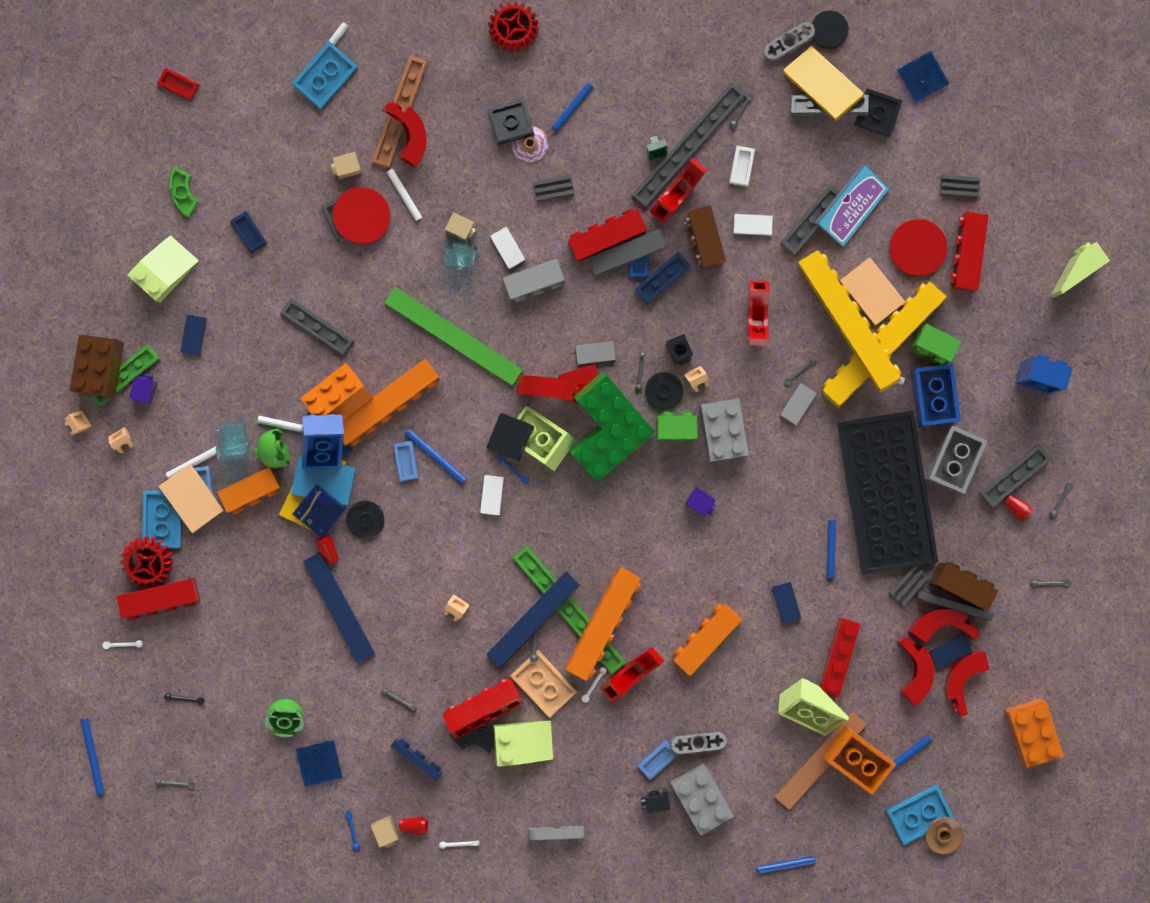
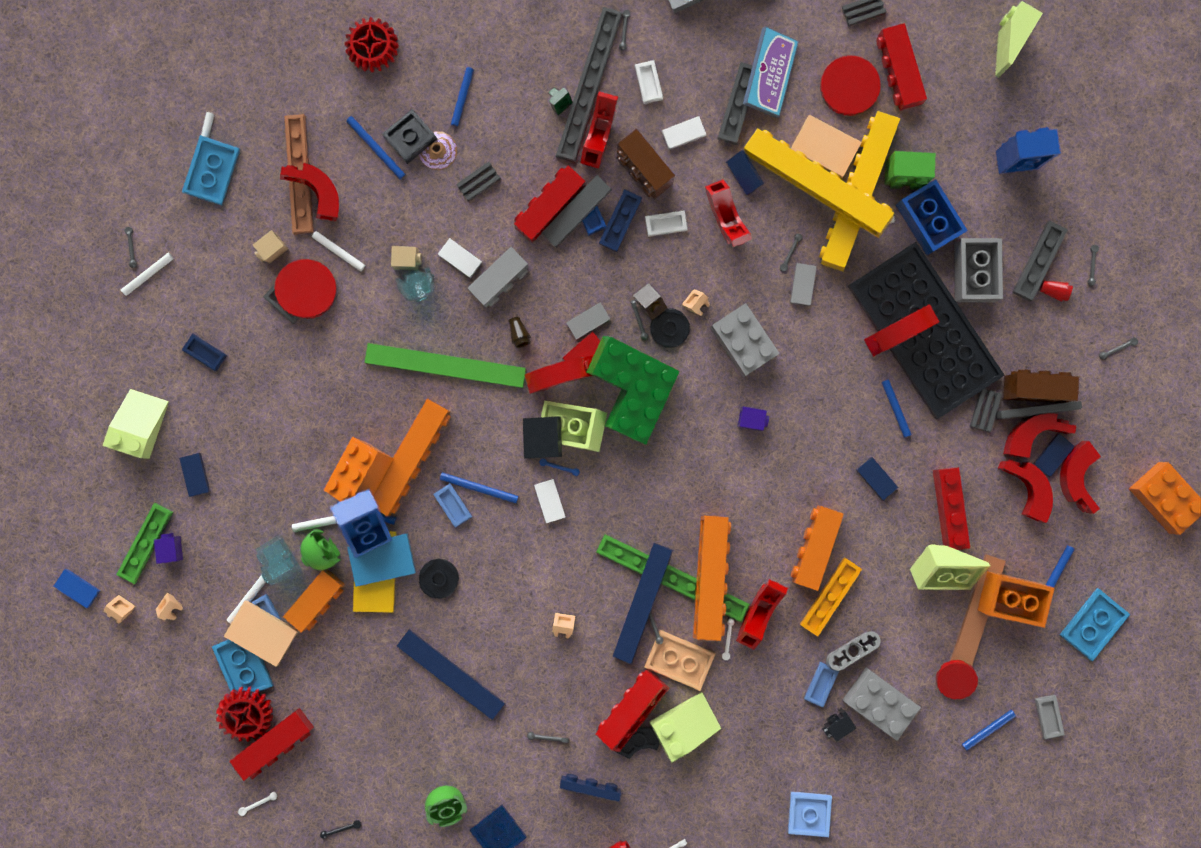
camera: 20 degrees left, 0 degrees up
(48, 388) = (76, 588): none -> blue tile
(96, 366) = (112, 547): reddish brown brick -> none
(178, 84) = (74, 241): red tile -> none
(180, 191) = (122, 343): bright green tile -> none
(229, 96) = (128, 230): none -> dark grey hinge
(229, 141) = (147, 274): none -> white bar
(317, 326) = (310, 414): dark grey tile -> none
(319, 511) = (389, 590): clear blue tile -> none
(327, 549) = (414, 623): red cone -> none
(476, 117) = (375, 147): none -> blue bar
(530, 336) = (519, 334): none -> dark brown cone
(547, 833) = (762, 796): light grey beam -> none
(597, 868) = (809, 814): none -> light blue tile
(656, 360) = (650, 301): none -> brick
(676, 427) = (699, 357): bright green brick -> none
(679, 341) = (663, 274): black brick -> none
(699, 687) = (830, 596): none -> light orange plate
(701, 297) = (666, 223): none -> white tile
(777, 808) = (956, 679): none -> red tile
(790, 283) = (745, 172): none -> dark blue tile
(844, 877) = (1049, 717): none -> light grey tile
(864, 482) = (901, 330): none -> red arch
(949, 841) = (1134, 637): medium nougat dish -> none

